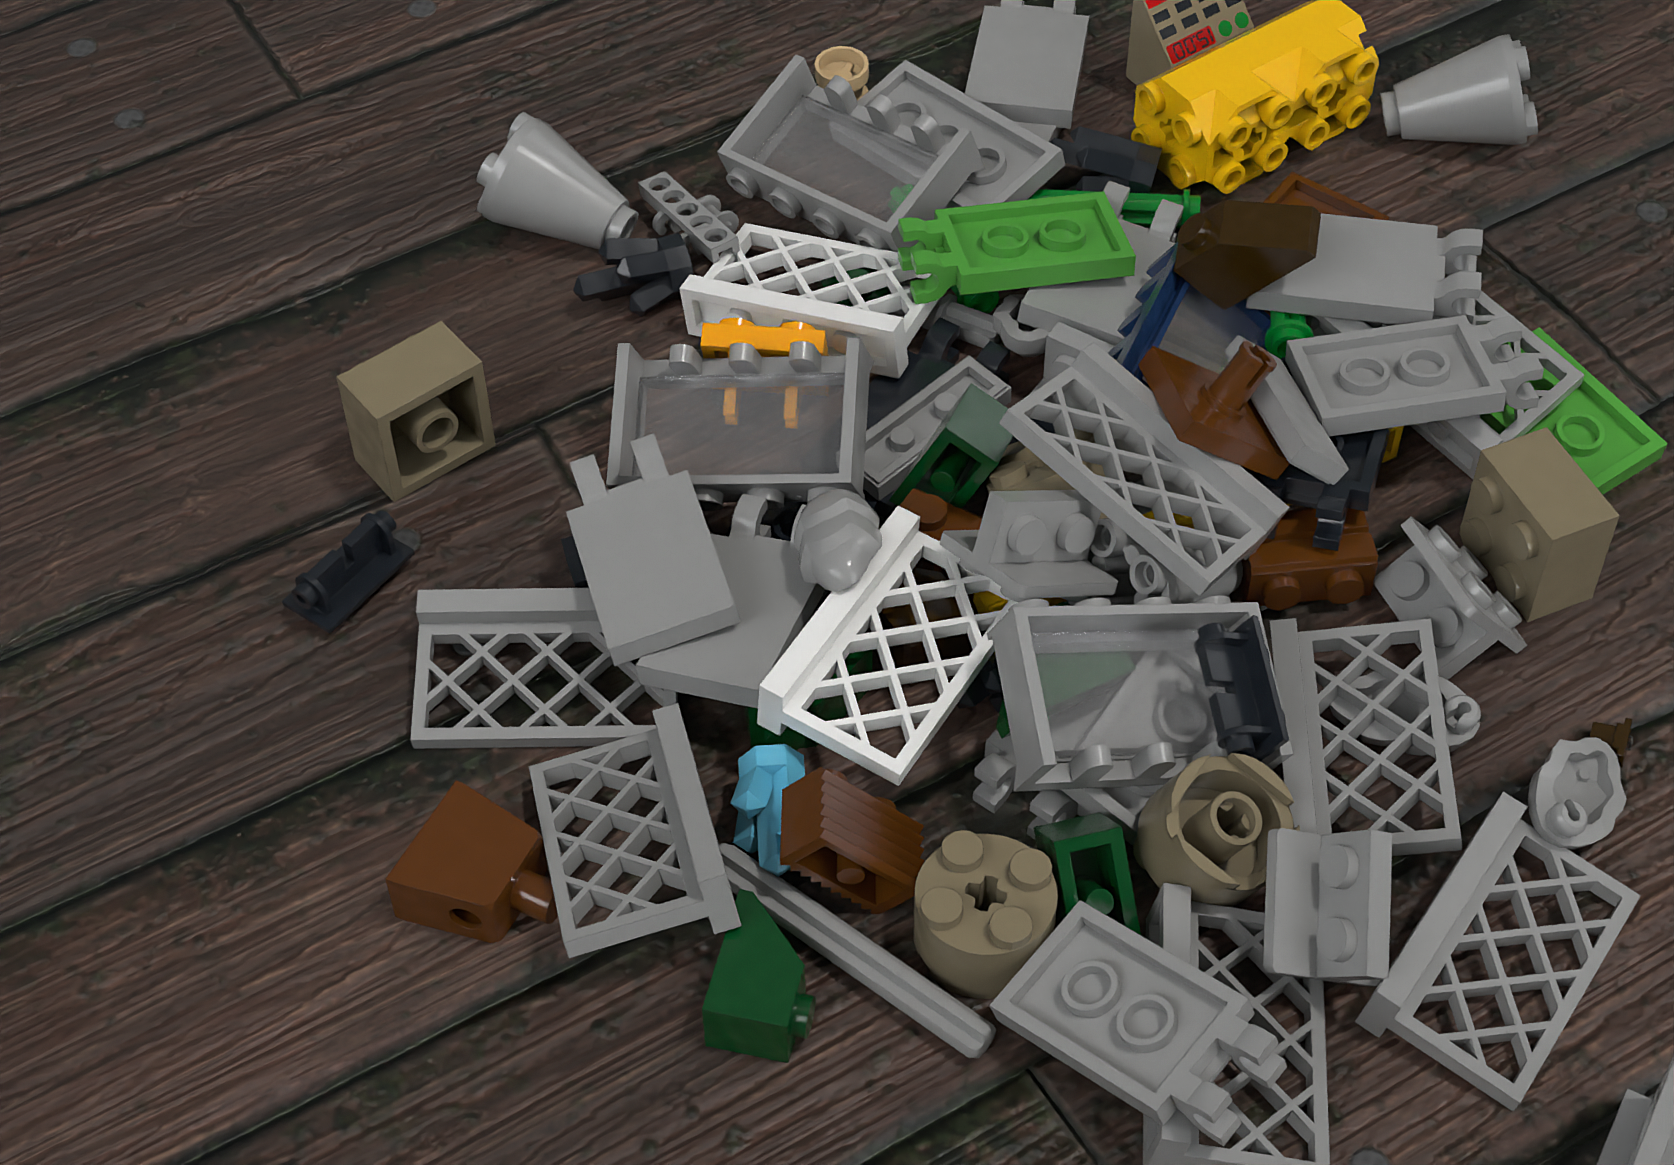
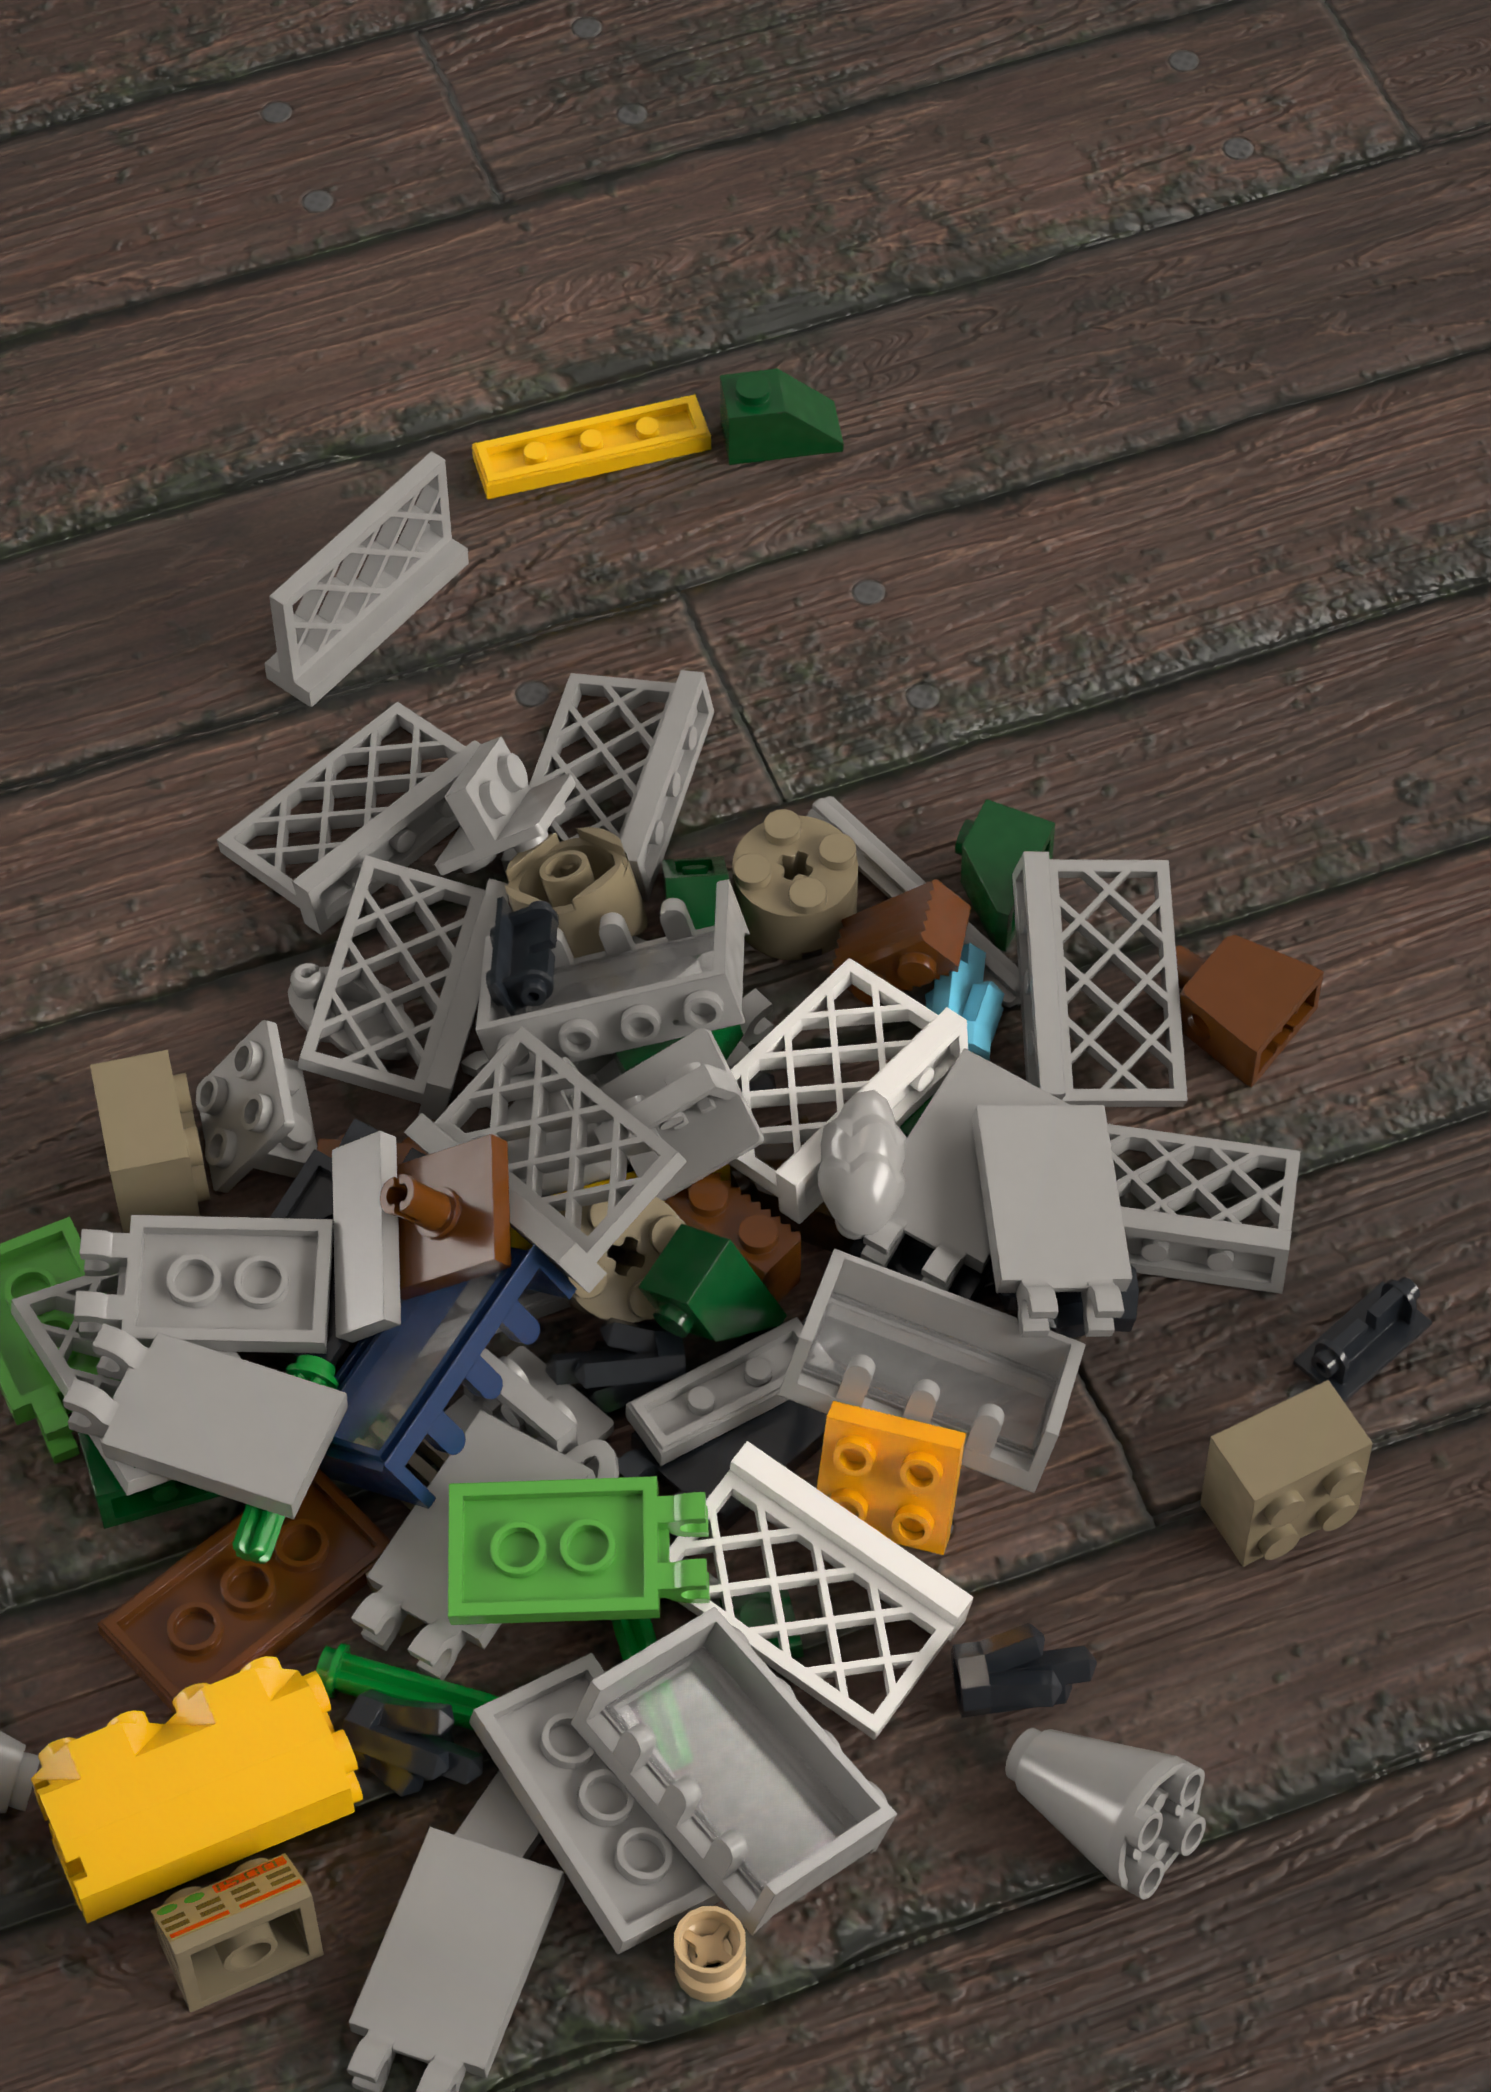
camera: 170 degrees left, 5 degrees up
(701, 219) = (923, 1737): light grey piece -> none
(1138, 1021) = (696, 747): light grey tile -> none
(1244, 247) = (342, 1391): dark brown slope -> none
(1576, 793) = (233, 914): light grey arm -> none
(1615, 736) = (166, 982): dark brown piece -> none

